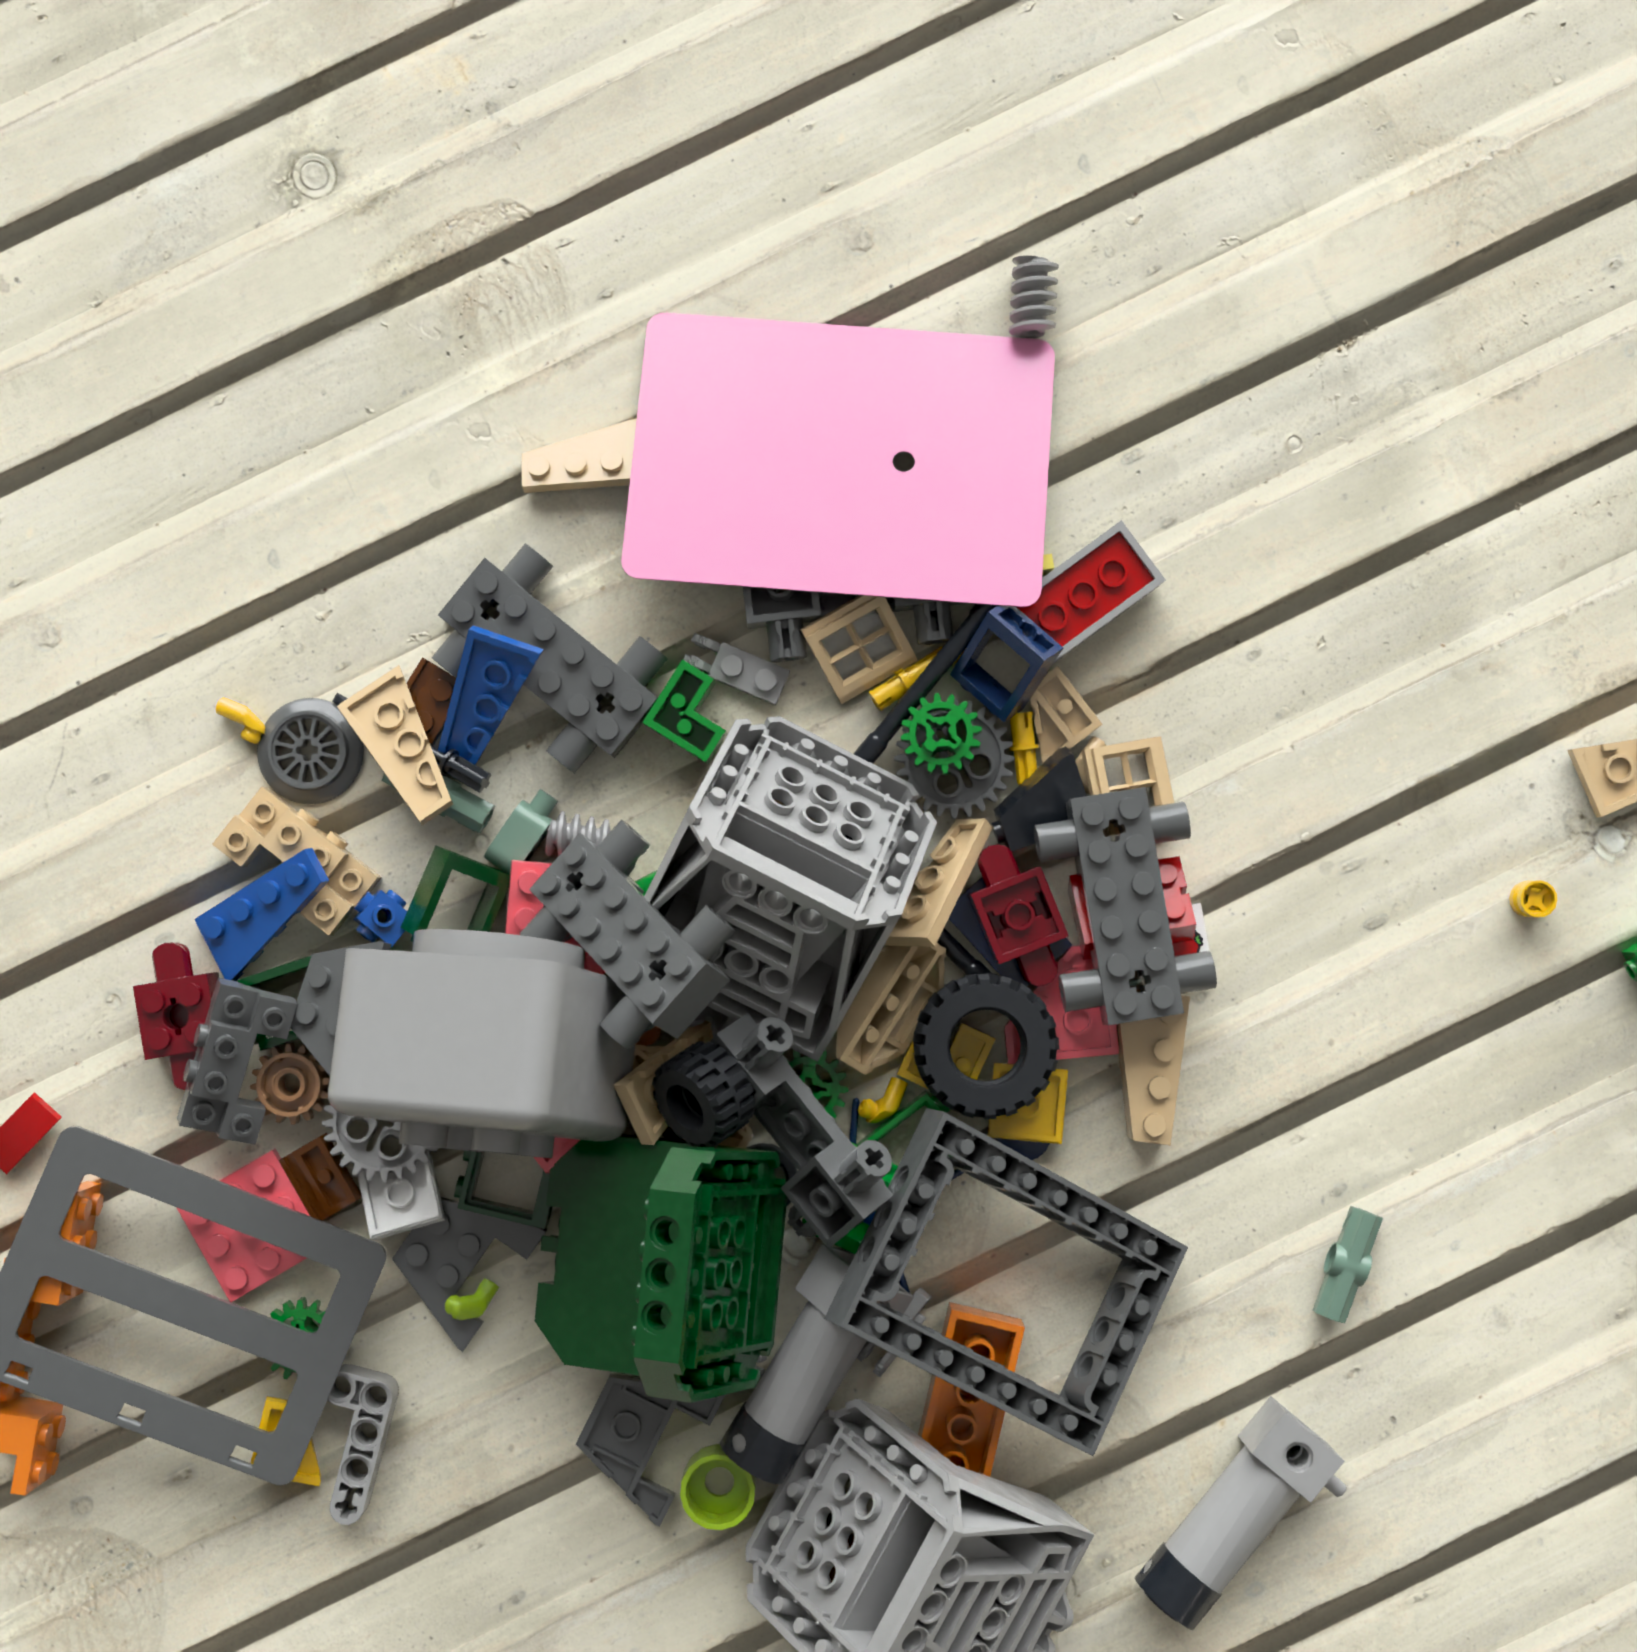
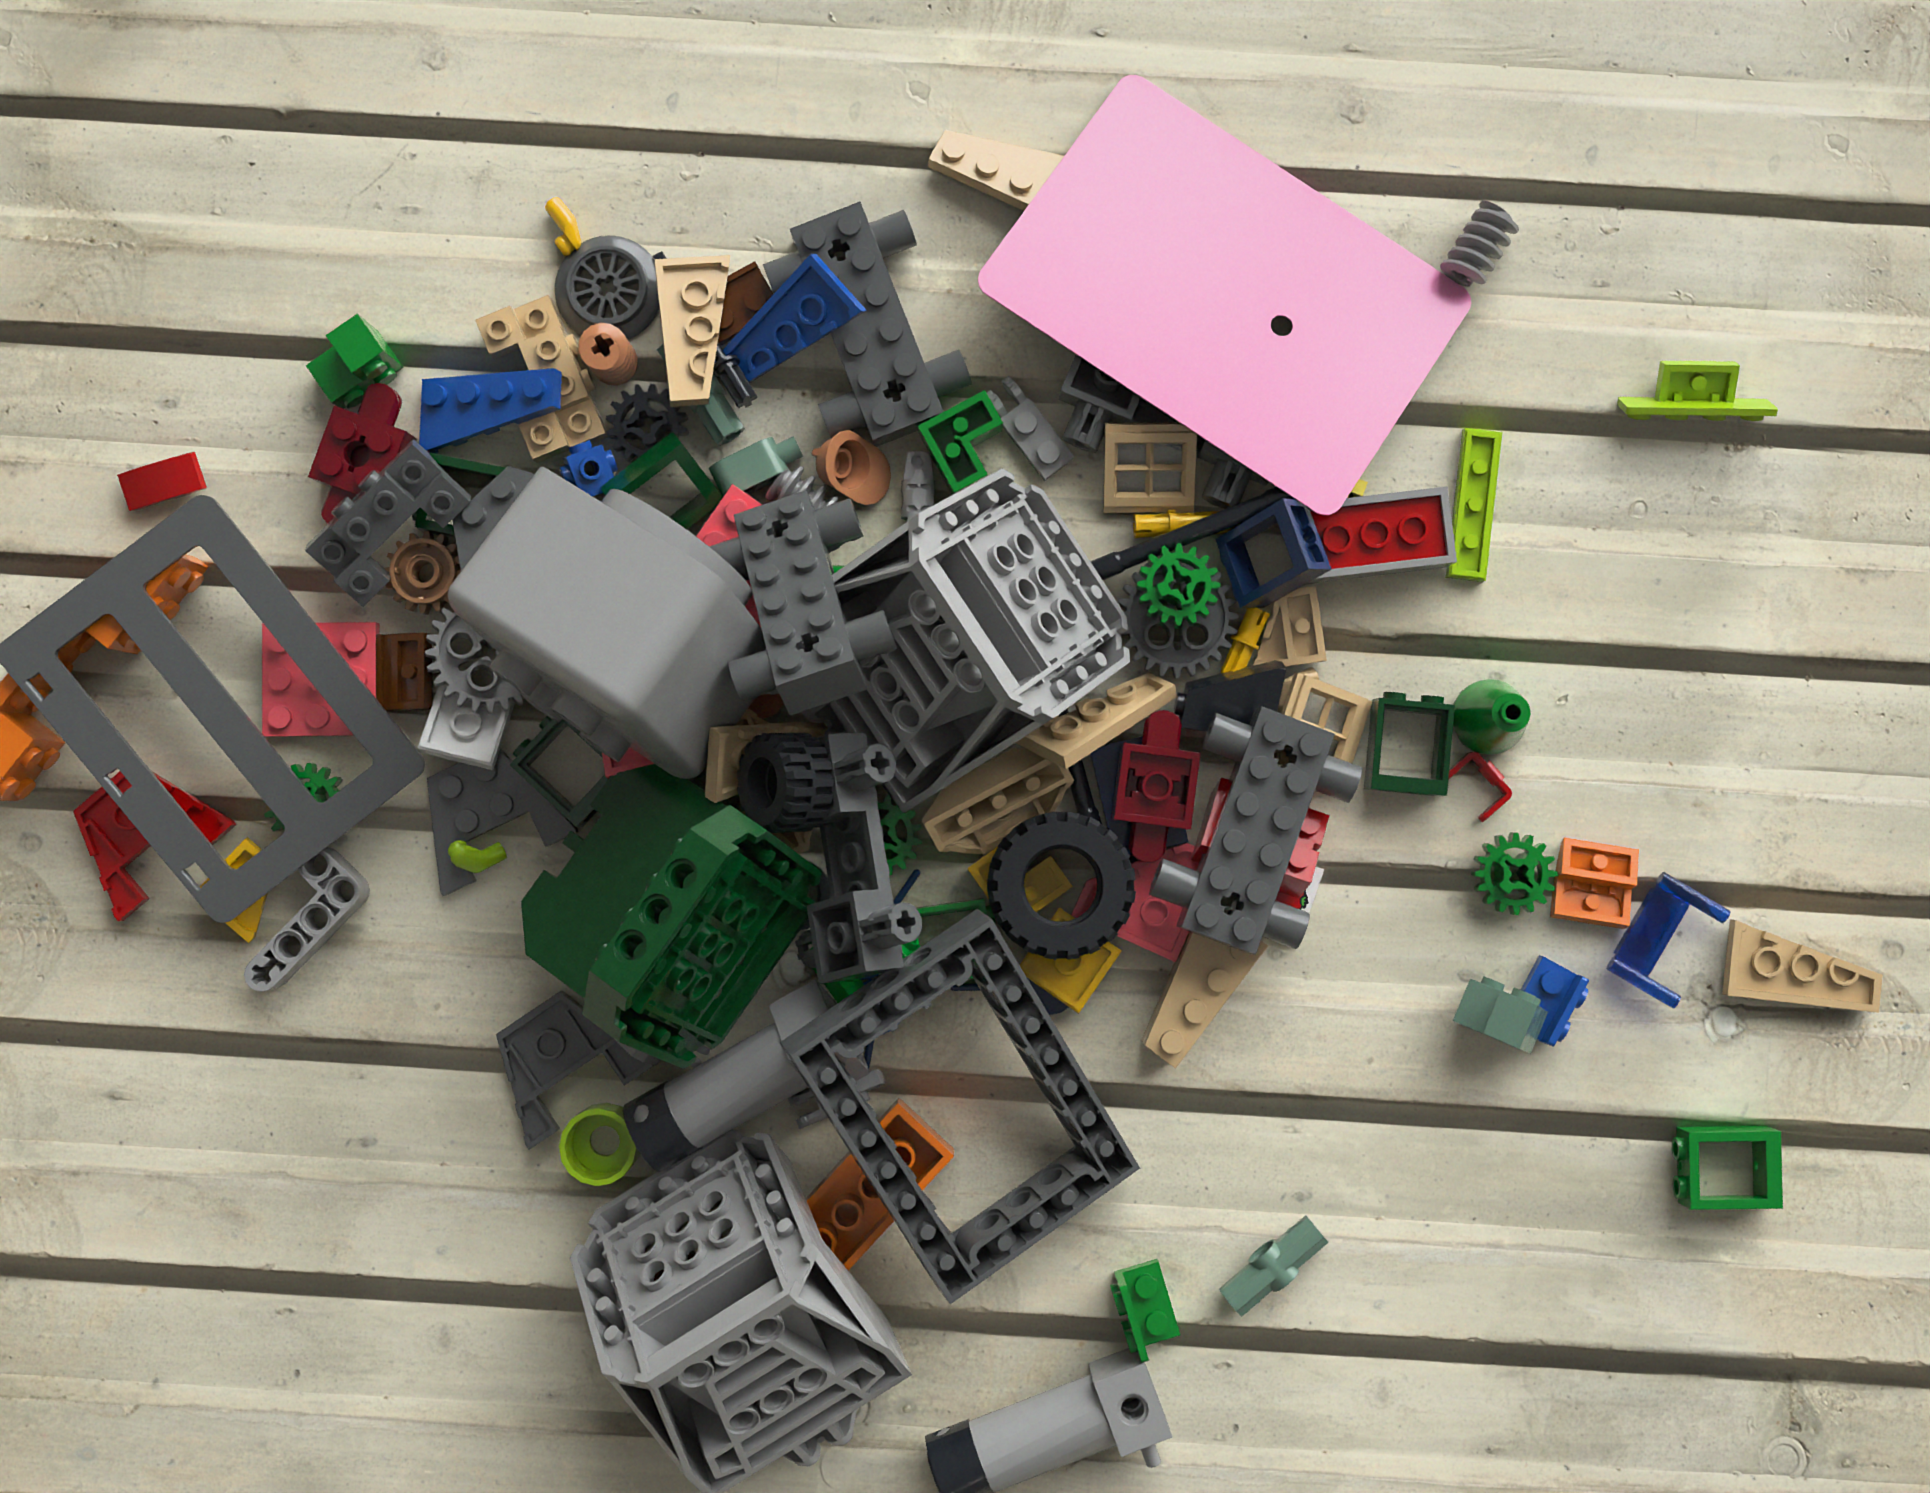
camera: 25 degrees right, 0 degrees up
(128, 939) = (353, 362): none -> green brick
(157, 1464) = (118, 842): none -> red wing
(330, 816) = (597, 343): none -> nougat piece
(398, 838) = (631, 428): none -> black gear
(607, 787) = (853, 467): none -> nougat piece
(672, 774) = (917, 484): none -> light grey hinge
(885, 1106) = (941, 891): yellow arm -> none
(1152, 518) = (1474, 503): none -> lime tile
(1256, 775) = (1441, 751): none -> dark green window
(1257, 1357) = (1145, 1300): none -> green bracket
(1267, 692) = (1490, 716): none -> green cone
(1286, 317) = (1697, 389): none -> lime bracket
(1294, 740) = (1492, 775): none -> red piece
(1369, 802) = (1525, 861): none -> green gear
(1421, 944) = (1501, 1015): none -> sand green brick
(1435, 784) = (1594, 883): none -> orange slope
(1452, 907) = (1559, 995): none -> blue bracket
(1507, 797) = (1652, 931): none -> clear blue plate
(1540, 898) = (1632, 1035): yellow wheel -> none

